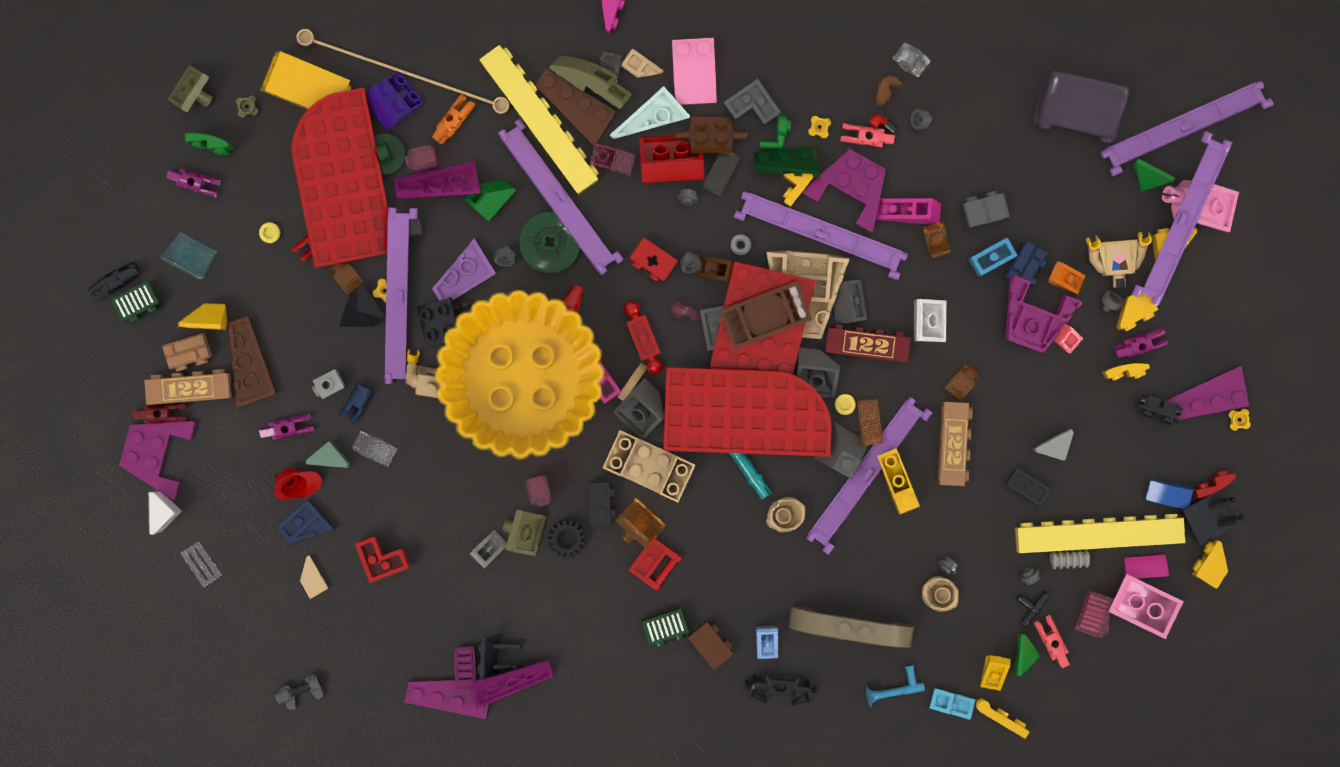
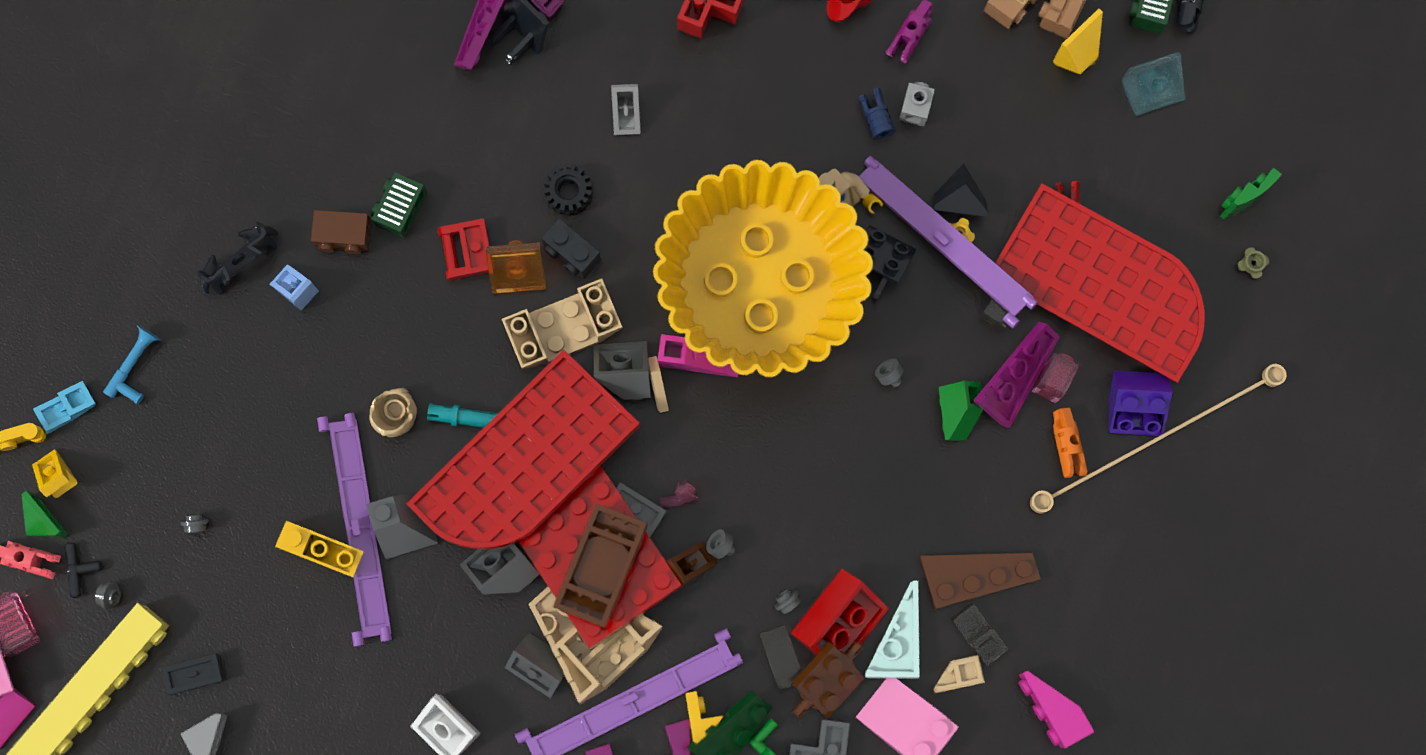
camera: 130 degrees right, 10 degrees down
(183, 179) = (1224, 150): magenta hinge -> none
(190, 90) = (1318, 221): olive tile -> none
(249, 366) = (1003, 50): reddish brown wing -> none
(270, 232) = (1110, 178): light yellow tile -> none
(300, 81) = (1235, 331): yellow slope -> none
(328, 456) = (848, 44): sand green slope -> none
(345, 276) = (1005, 208): clear orange bracket -> none
(374, 448) = (820, 92): clear slope -> none
(390, 153) = (1091, 353): dark green tile -> none
(465, 274) = (906, 321): medium lavender wing -> none
(524, 532) = (609, 154): olive tile -> none
(533, 243) = (881, 416): dark green piece -> none
(539, 120) = (995, 525): light yellow brick -> none
(539, 490) = (637, 202): clear pink brick -> none
(558, 198) = (900, 473): medium lavender piece -> none
(573, 298) = (788, 397): red cone -> none
(587, 74) = (990, 616): olive slope -> none
(613, 159) = (890, 561): clear pink slope -> none
(643, 337) = (690, 433): red plate -> none
(665, 261) = (745, 521): red brick -> none
(747, 242) = (686, 604): light grey plate -> none
(845, 404) = (444, 569): light yellow tile -> none
(850, 628) = (196, 387): dark tan arch -> none
(867, 345) = (479, 644): dark red brick -> none
(869, 422) = (403, 576): clear orange slope -> none
(940, 594) = (175, 490): tan hair -> none
(953, 444) = (304, 639): medium nougat brick -> none
(962, 382) = (354, 705): clear orange bracket -> none
(1070, 559) = (84, 649): light grey piece -> none

